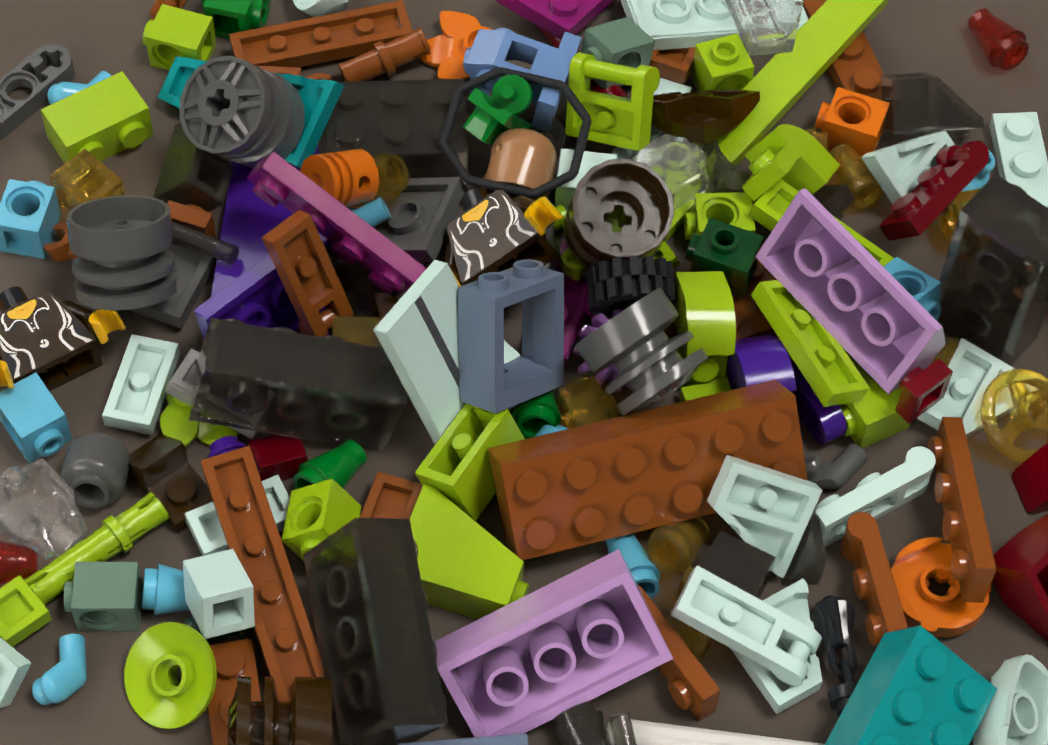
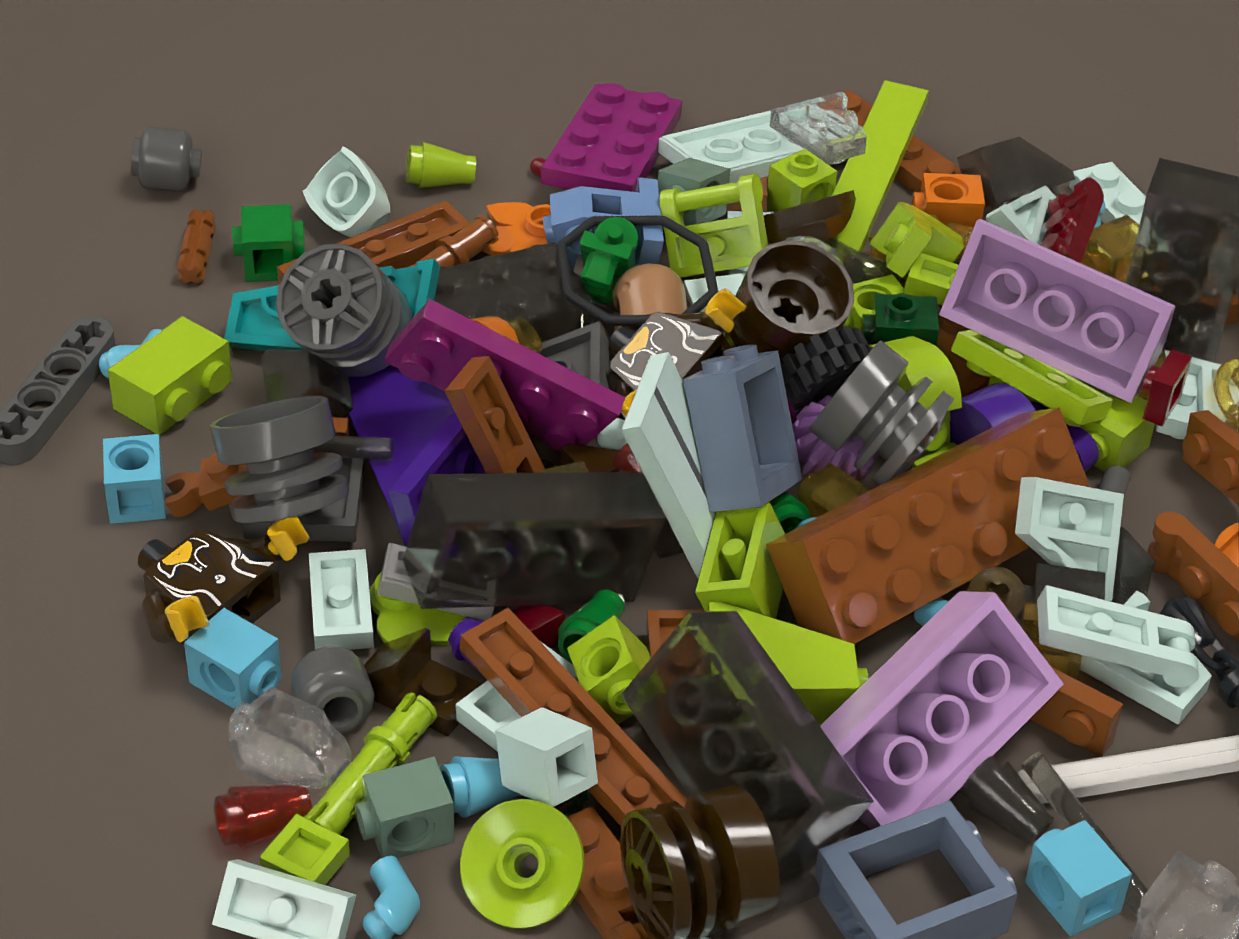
camera: 20 degrees left, 15 degrees down
(84, 180) = (186, 431): clear yellow brick -> none
(178, 34) = (217, 277): lime brick -> none
(877, 494) = (1171, 493): light aqua plate -> none
(1000, 41) = (1043, 114): clear red cone -> none

